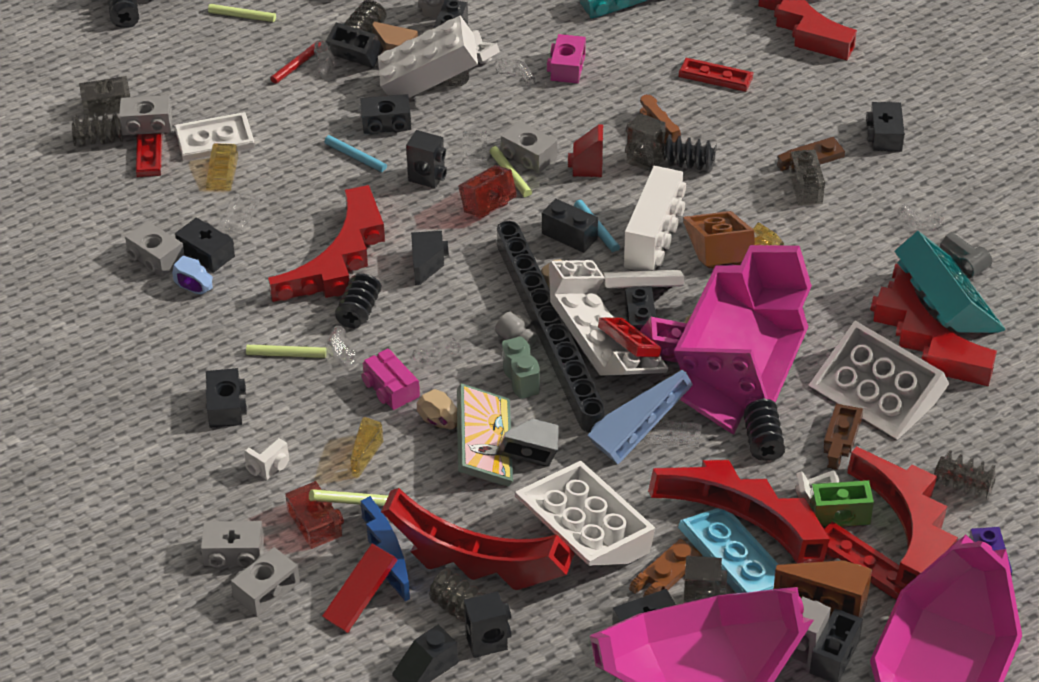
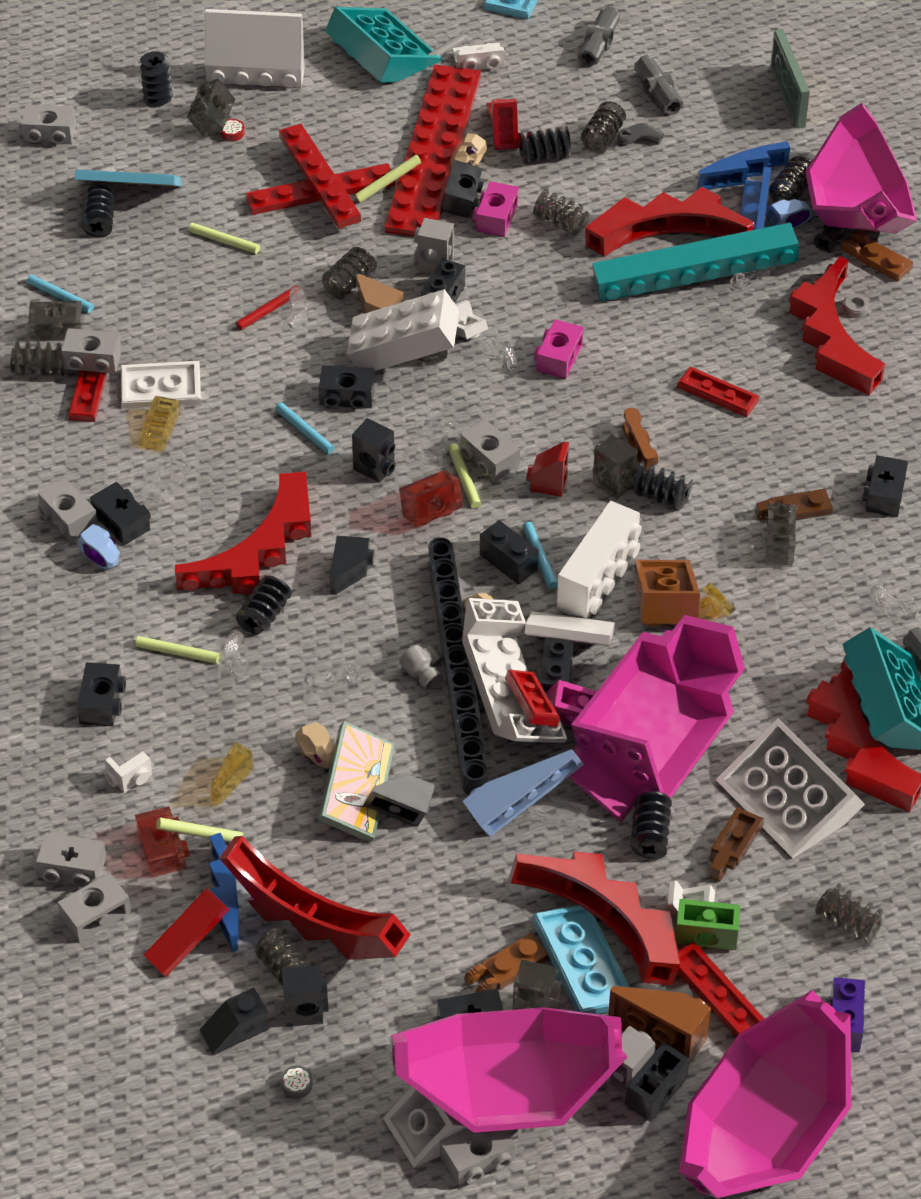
camera: 10 degrees right, 5 degrees up
(99, 75) = (58, 292): none -> medium azure bar
(354, 45) = (332, 298): black brick -> none
(390, 379) = (276, 701): dark pink brick -> none
(521, 367) = (414, 710): sand green brick -> none
(589, 516) = (436, 895): white slope -> none
(910, 498) = (790, 954): red arch -> none

